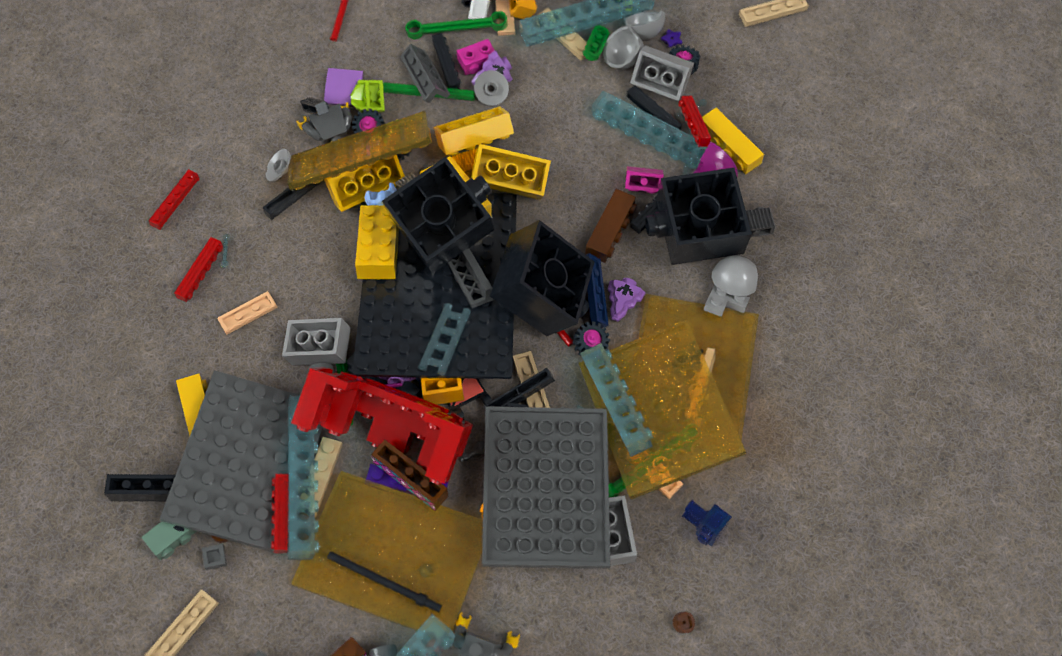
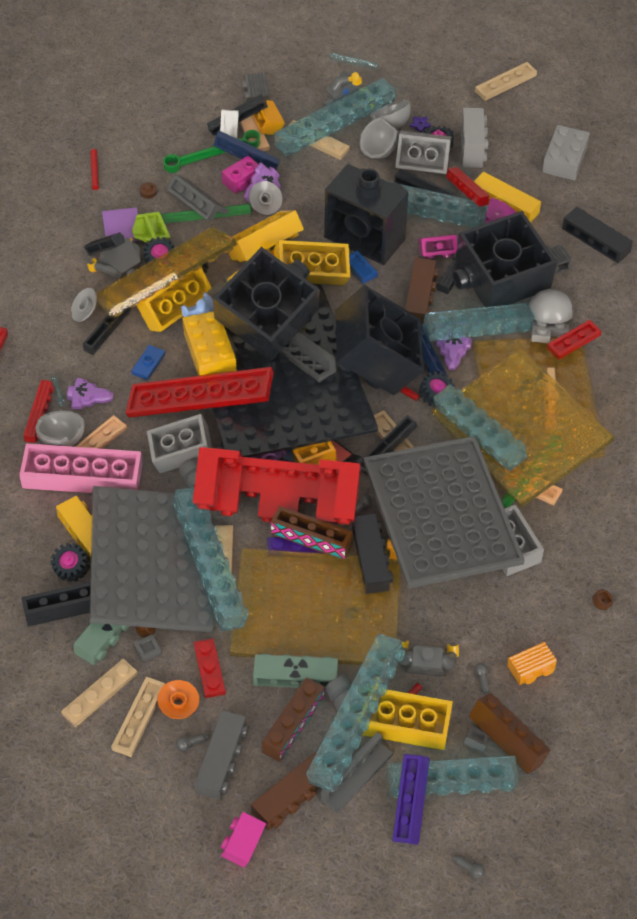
camera: 15 degrees left, 10 degrees down
(153, 592) = (99, 692): none -> tan plate
(170, 443) = (70, 562): none -> black wheel
(208, 296) = (60, 428): none -> light grey cylinder
(214, 345) = (79, 468): none -> bright pink brick
(216, 615) = (180, 691): none -> orange dish
(249, 262) = (87, 394): none -> medium lavender rock
(267, 594) = (209, 668): none -> red plate
(280, 516) = (201, 592): red piece -> none
(320, 241) = (148, 362): none -> blue plate
(347, 622) = (292, 670): none -> sand green brick
(352, 292) = (200, 392): none -> red plate
(382, 53) = (148, 190): none -> reddish brown tile
(420, 598) = (358, 634): black bar -> none
(445, 59) = (212, 184): black piece -> none
(447, 348) = (312, 417): clear light blue bar -> none
(462, 512) = (370, 554): none -> black brick
(484, 32) = (241, 150): none -> dark blue plate
(560, 184) = (361, 268): none -> blue plate
(578, 131) = (366, 213): none -> black brick
(596, 43) = (351, 140): green plate -> none
(655, 276) = (478, 322): none -> clear light blue brick
(708, 523) = (596, 511): clear blue brick -> none
(718, 66) = (473, 137): none -> light grey brick
(747, 319) = (574, 339): none -> red plate
(808, 103) = (566, 152): none -> light grey brick
(811, 203) = (597, 234): none -> black brick

